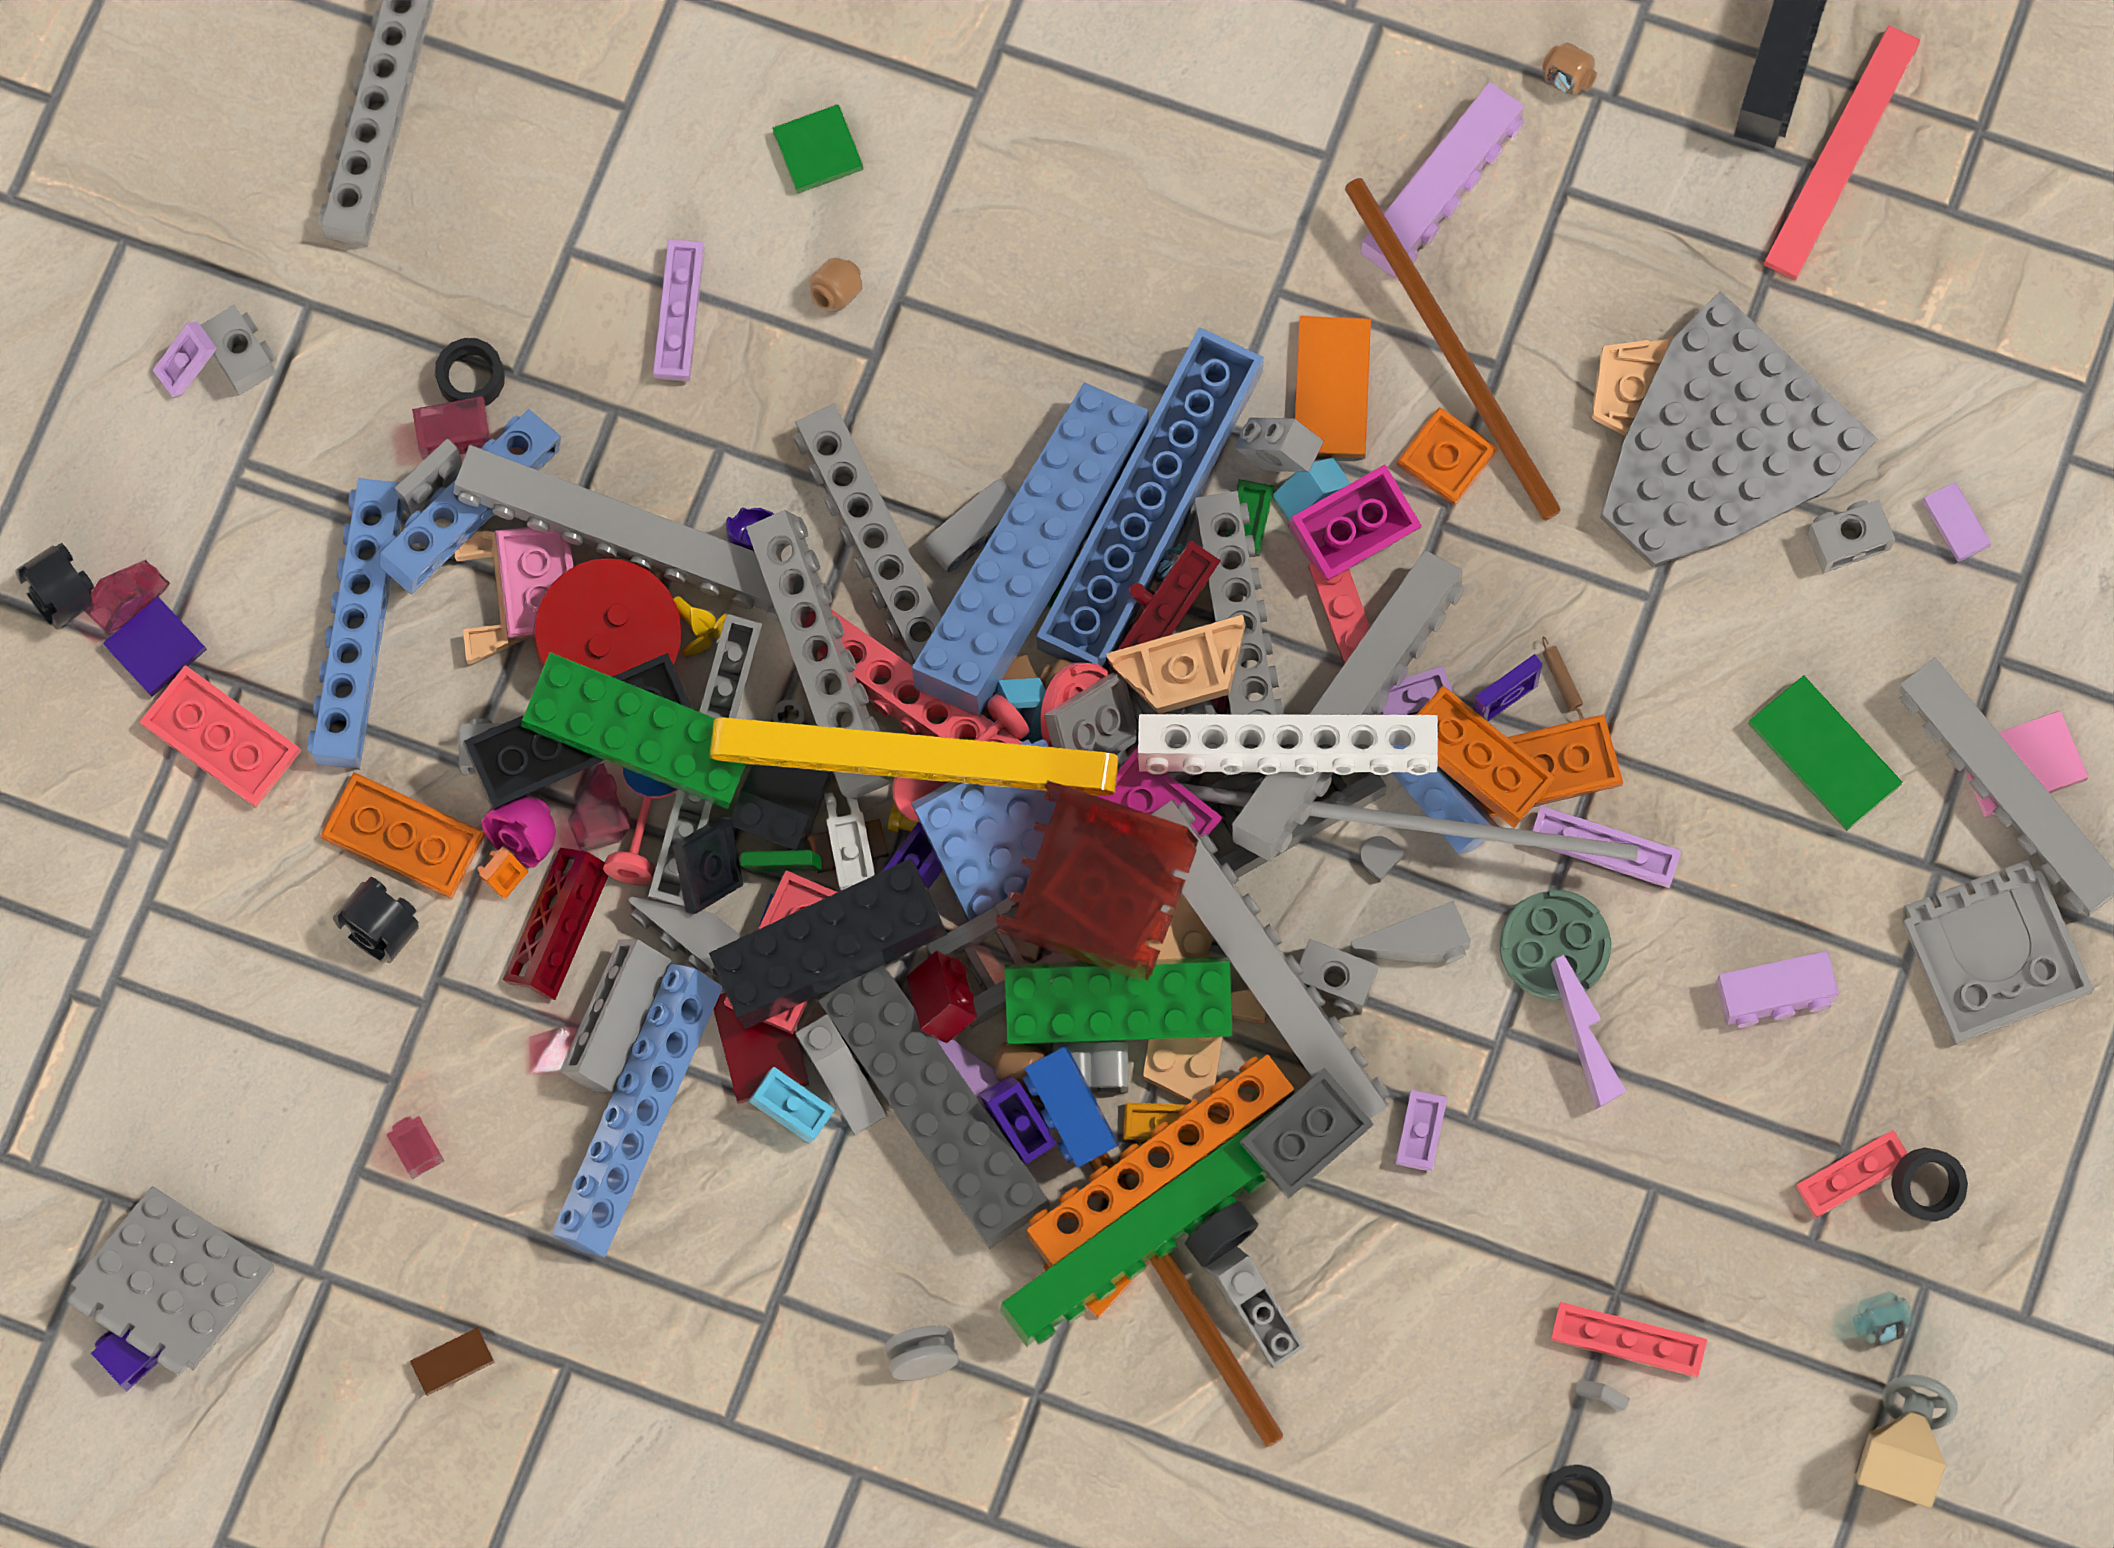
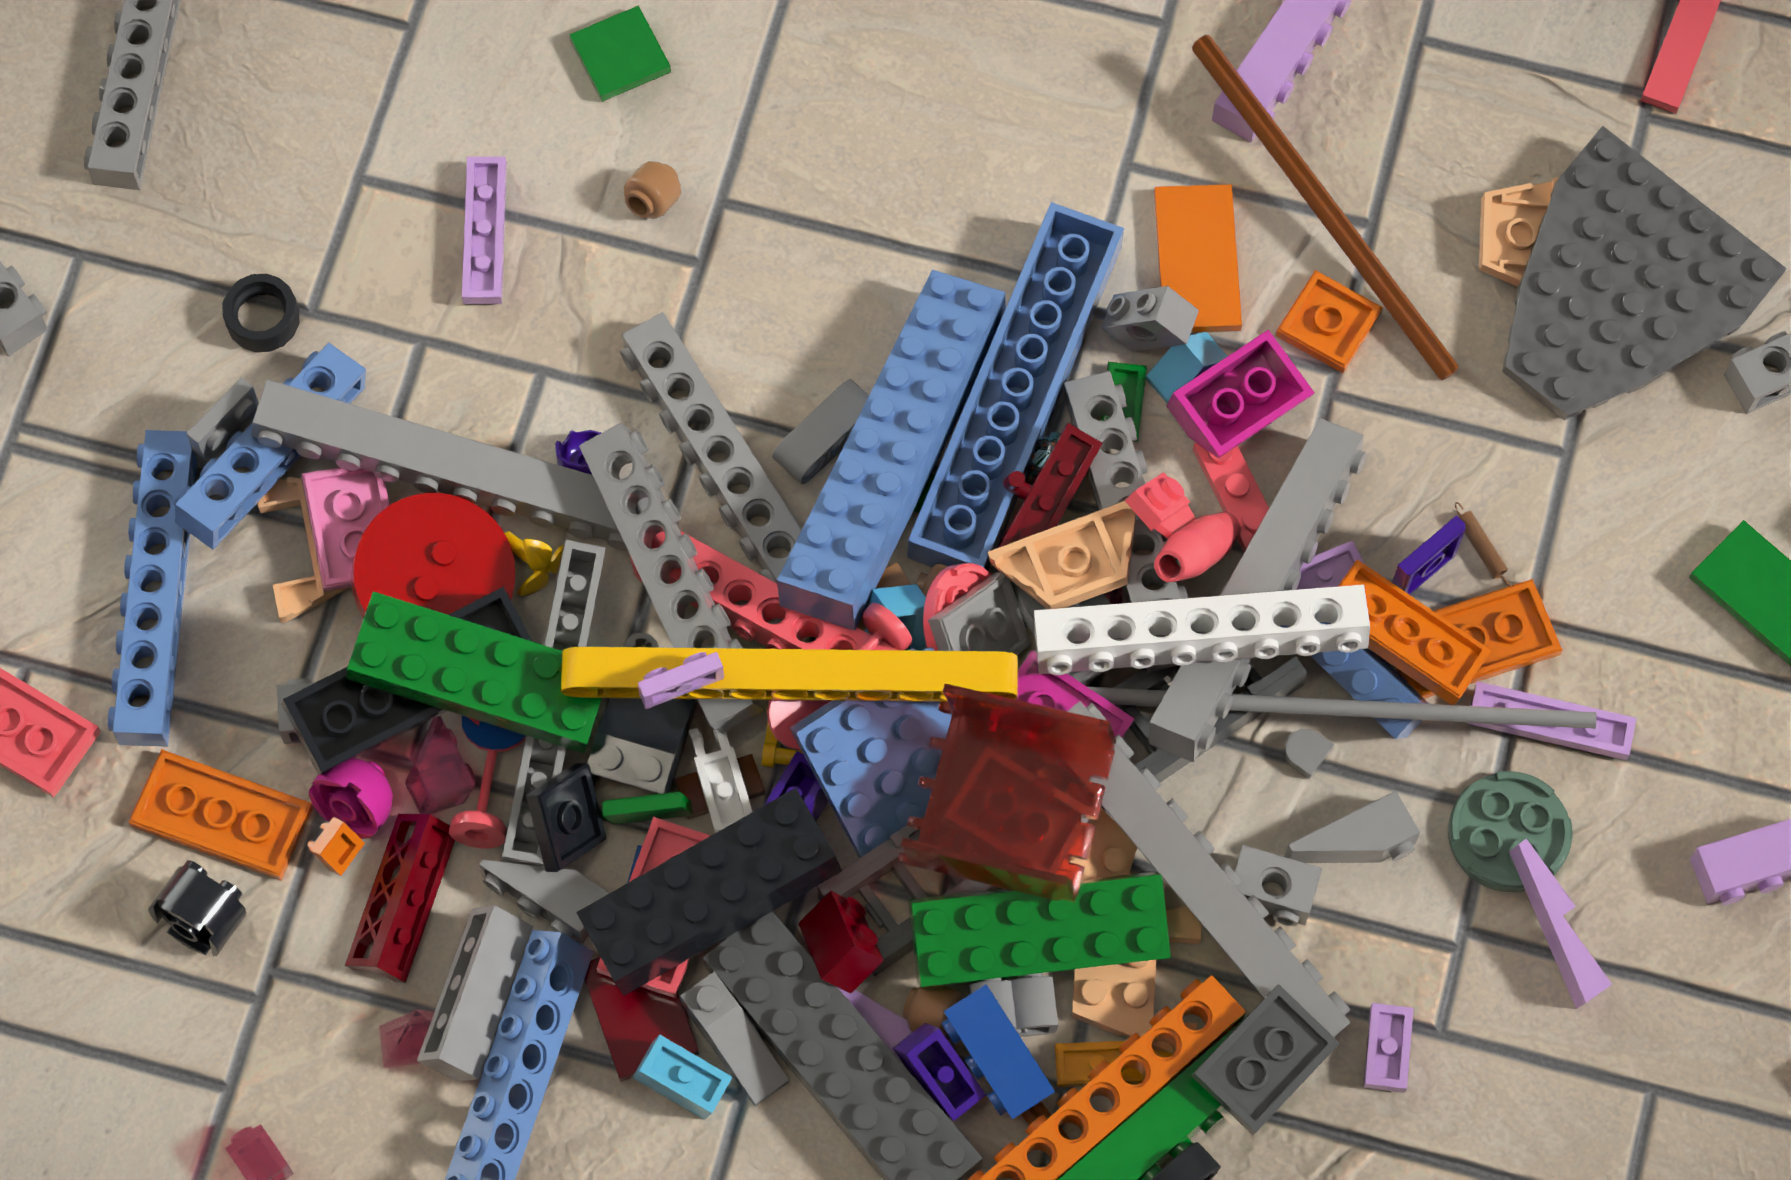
camera: 10 degrees left, 5 degrees down
(460, 421) = (252, 360): clear pink brick -> none
(829, 750) = (666, 684): none -> lavender plate
(1291, 658) = (1191, 540): none -> coral plate

